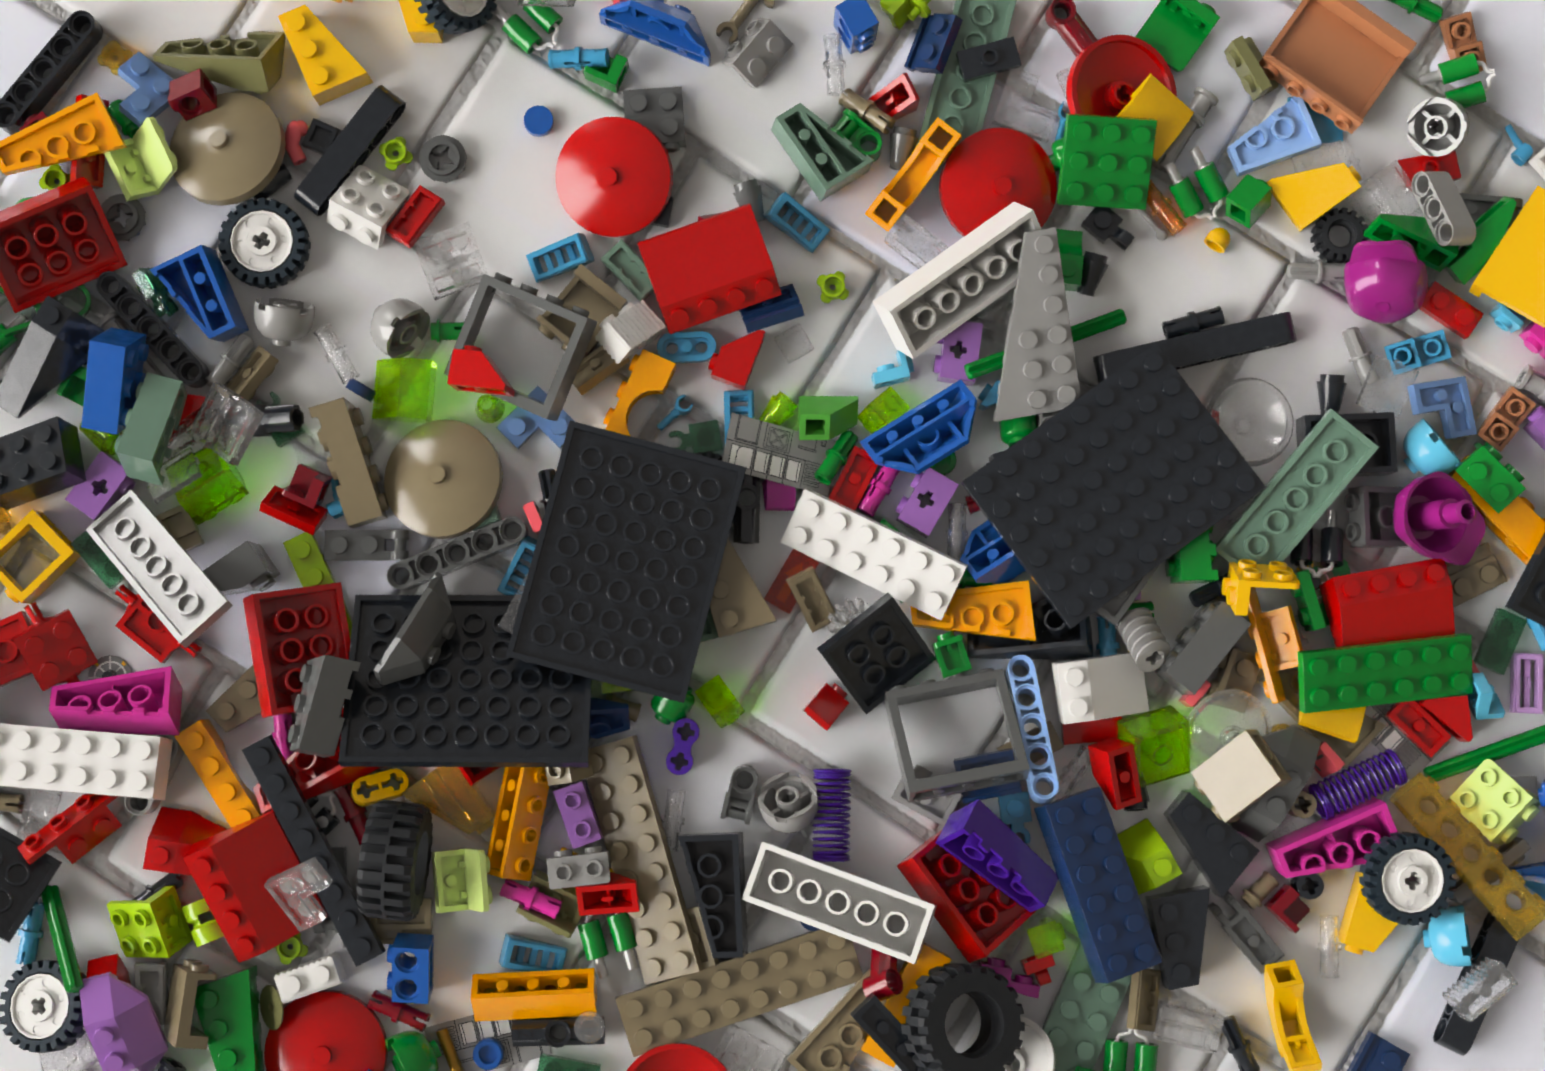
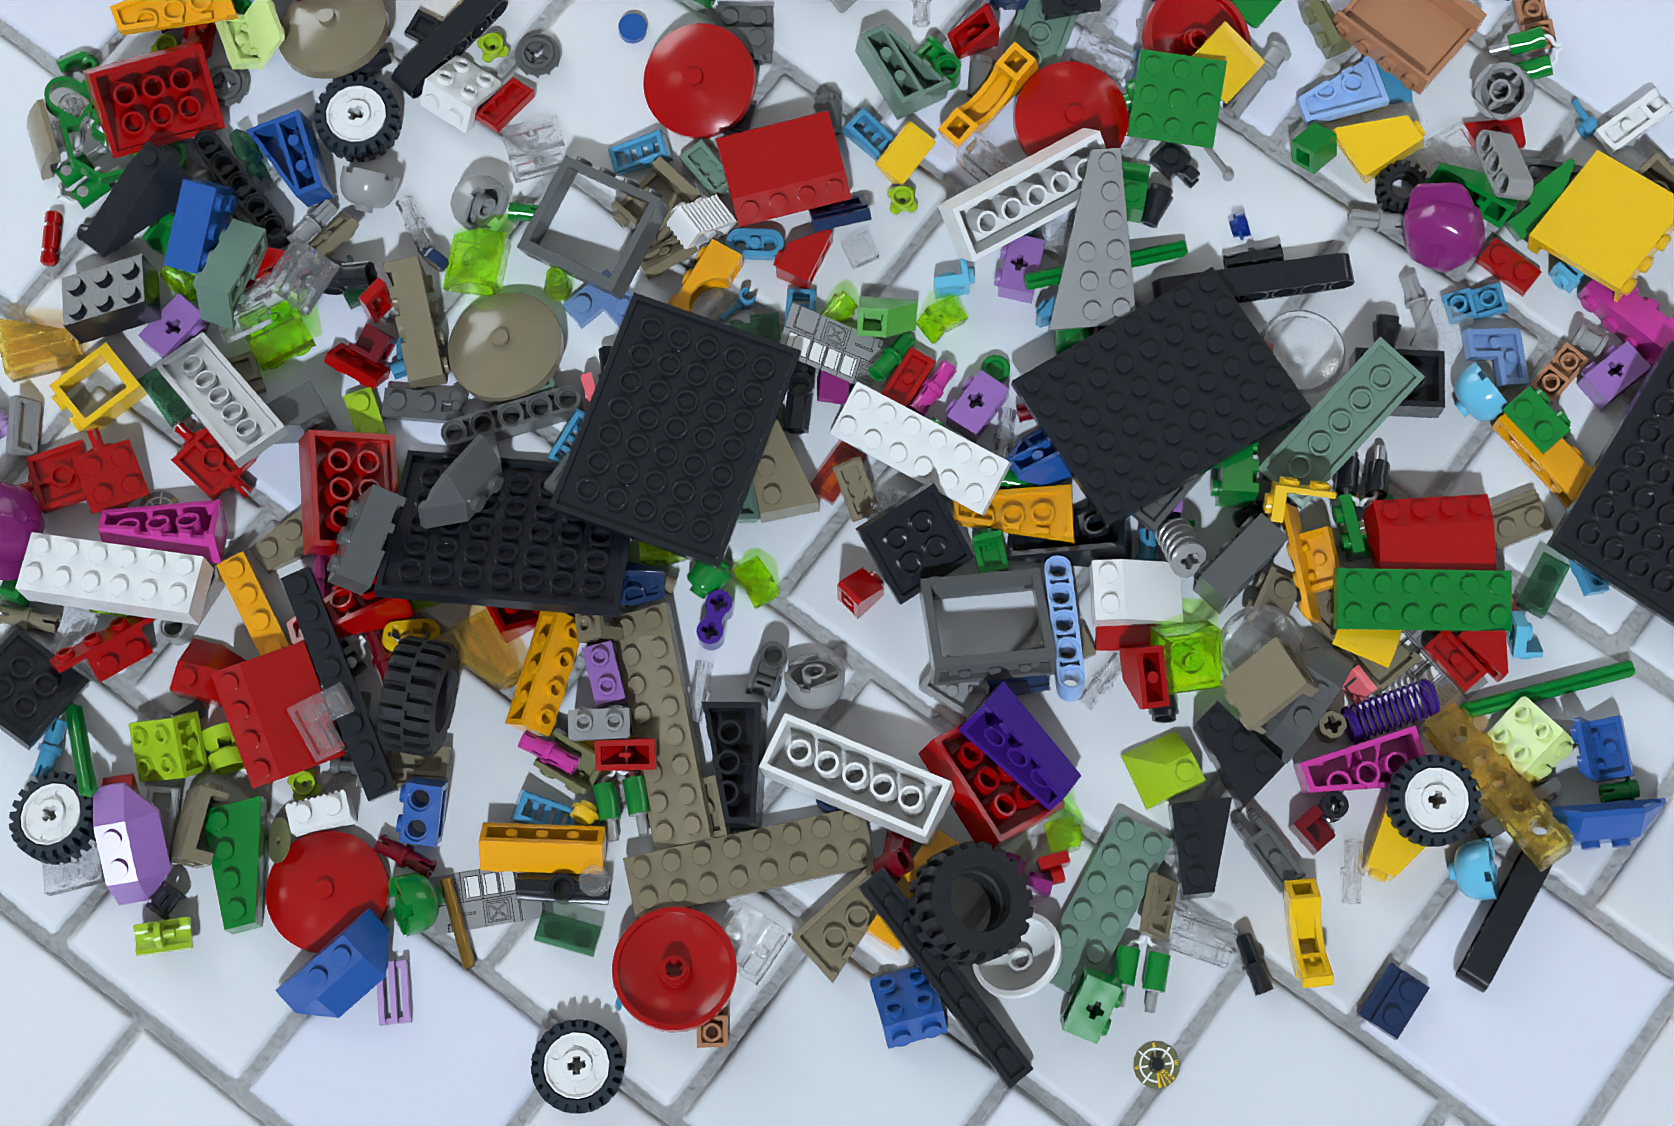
camera: 15 degrees right, 10 degrees down
(293, 134) = (397, 22): coral arm -> none
(305, 443) = (376, 300): none -> red plate
(461, 880) = (481, 730): yellowish green bracket -> none
(477, 373) = (547, 245): red slope -> none
(488, 1053) = (490, 907): blue tile -> none
(572, 954) = (584, 813): none -> yellow plate
(832, 238) = (905, 153): none -> yellow slope
(837, 775) = (865, 657): dark purple piece -> none
(867, 111) = (949, 39): dark tan pin -> none
(925, 432) = (980, 335): blue wedge -> none
(1015, 811) = (1044, 710): dark azure plate -> none
(1098, 885) = (1118, 783): dark blue brick -> none
(1163, 210) = (1230, 151): clear orange pin -> none
(1177, 289) = (1240, 226): none -> clear blue plate
(1192, 700) = (1231, 608): coral tile -> none
(1209, 180) = (1253, 138): green piece -> none
(1218, 240) = (1282, 183): yellow hinge -> none
(1259, 890) = (1284, 810): dark tan pin -> none
(1372, 517) = (1427, 454): dark grey plate -> none
(1438, 519) = (1484, 455): magenta piece -> none
(1479, 989) = (1500, 916): clear brick -> none
(1515, 667) = (1566, 654): lavender tile -> none

